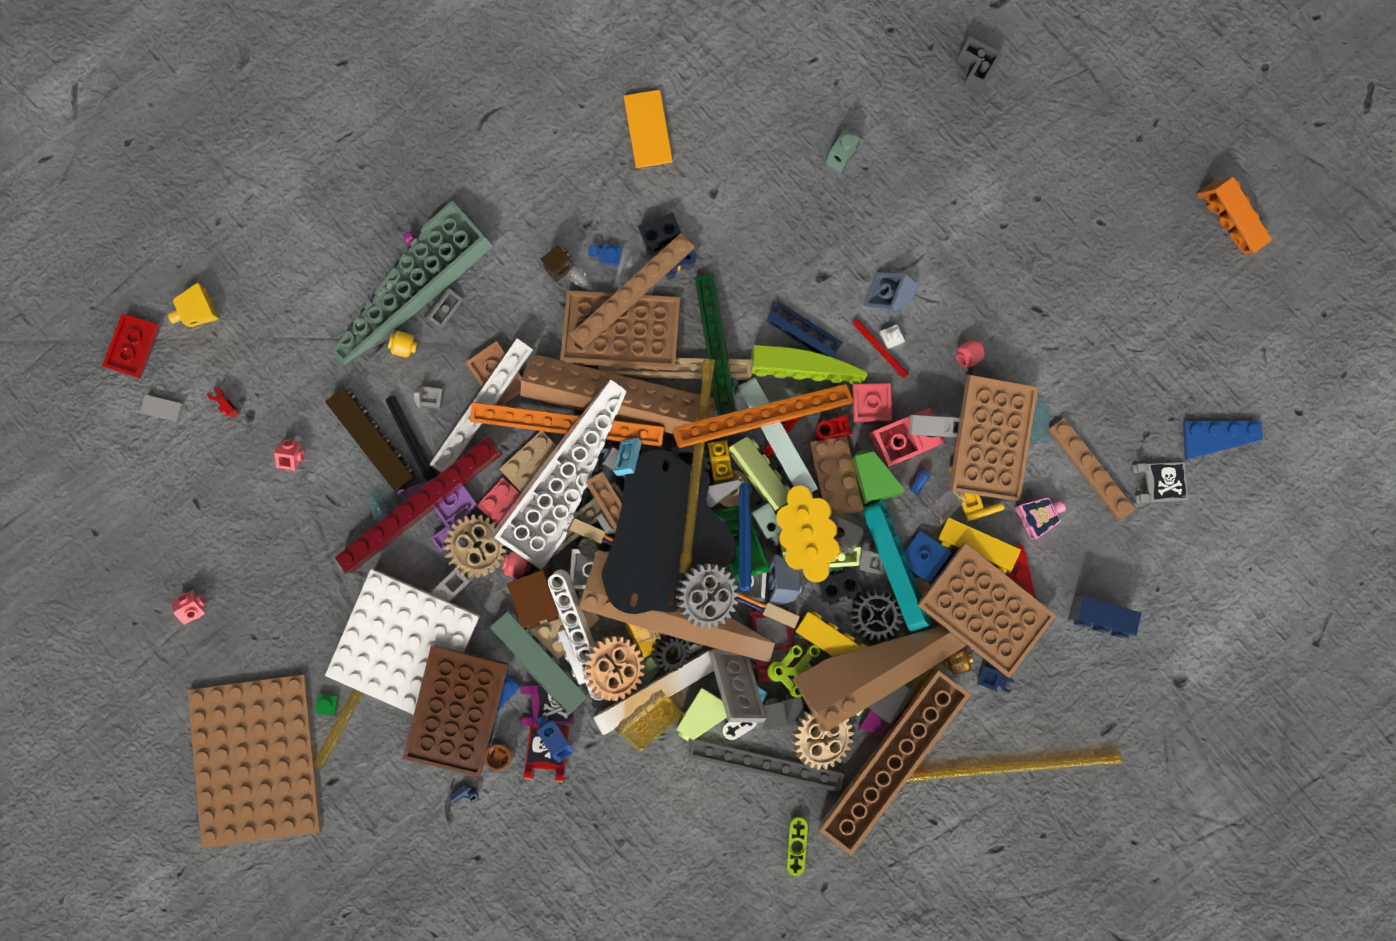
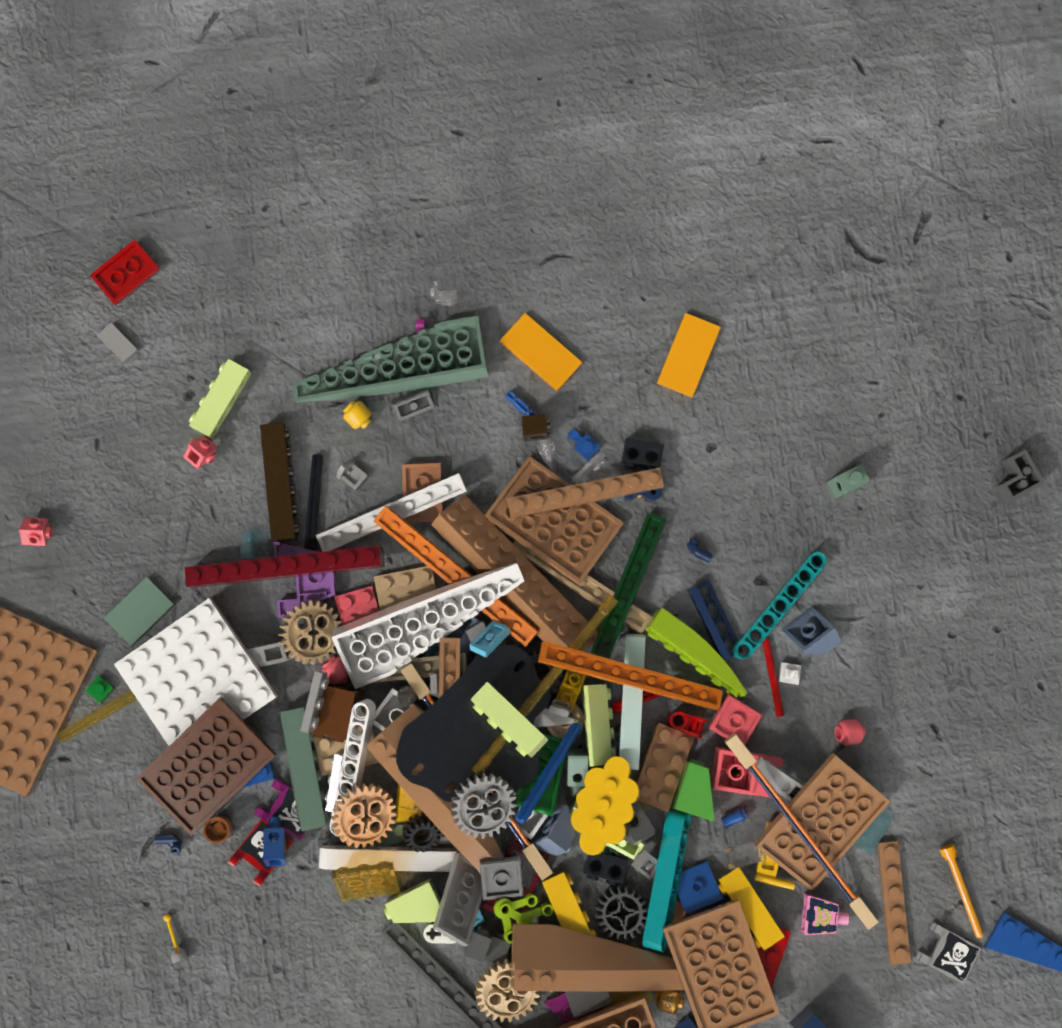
camera: 25 degrees right, 0 degrees up
(193, 307) = (198, 271): yellow torso -> none
(226, 406) = (173, 375): red plate -> none
(277, 401) = (219, 399): none -> yellowish green brick
(319, 619) = (139, 611): none -> sand green tile
(417, 202) = (446, 298): none -> clear bracket
(513, 598) = (315, 701): none -> light grey plate
(523, 200) = (540, 352): none -> light orange tile
(529, 881) = (178, 953): none -> hinge
(531, 253) = (520, 404): none -> blue axle
(684, 511) = (509, 720): none -> yellowish green brick
(721, 478) = (560, 708): none -> light grey tile
(755, 284) = (698, 552): none -> dark blue arm
(759, 647) = (501, 878): none -> tile
(853, 278) = (787, 600): none -> teal beam
(901, 422) = (747, 760): none -> piece
(1111, 401) = (949, 853): none -> light orange piece

